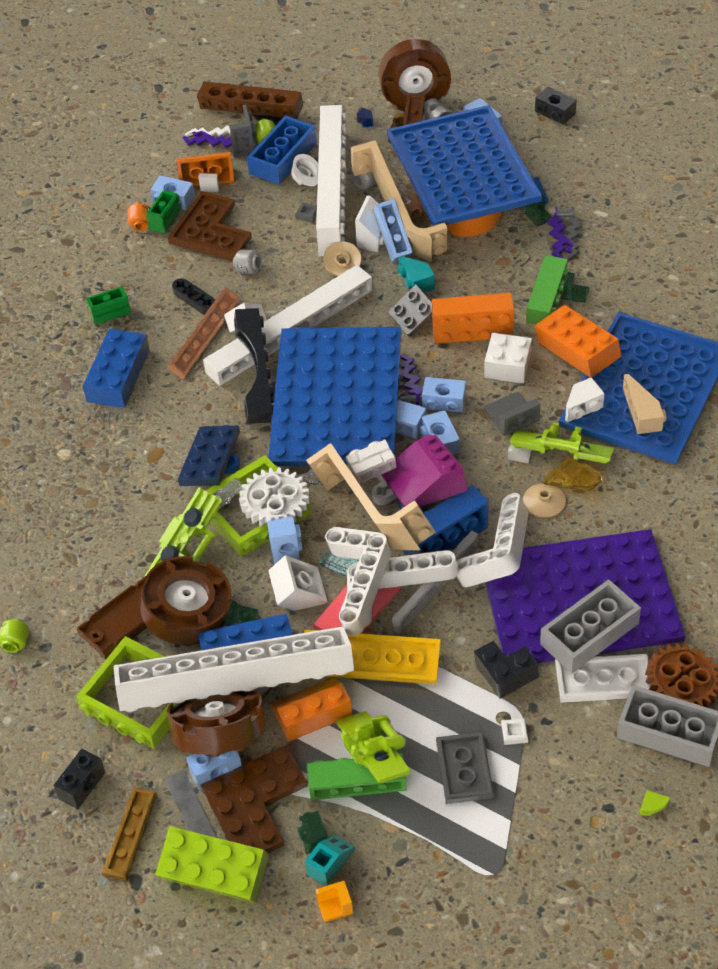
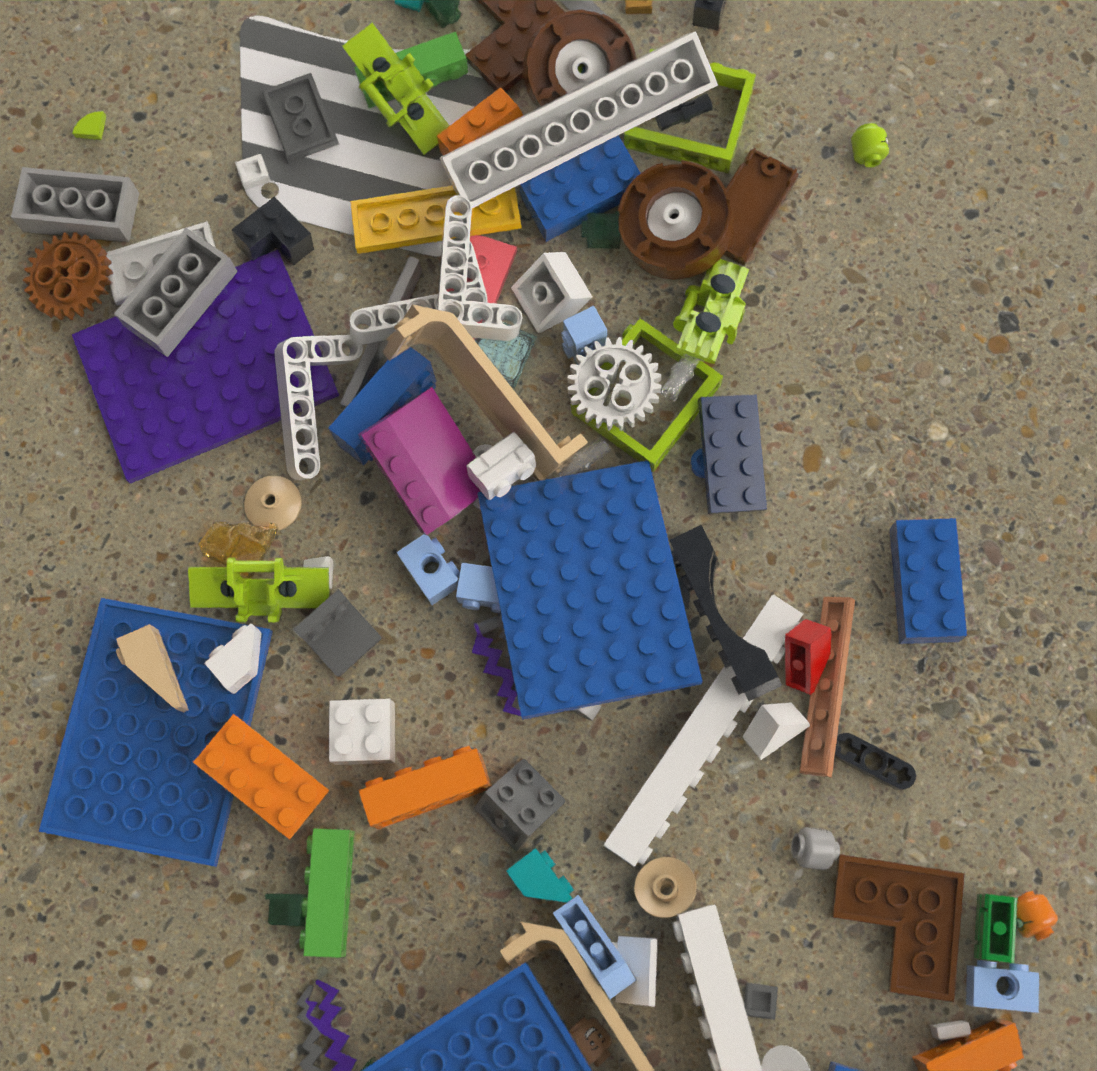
camera: 170 degrees right, 25 degrees up
(108, 305) = (993, 695): green brick -> none
(209, 342) = (806, 655): none -> red slope
(444, 394) = (456, 649): light blue brick -> none

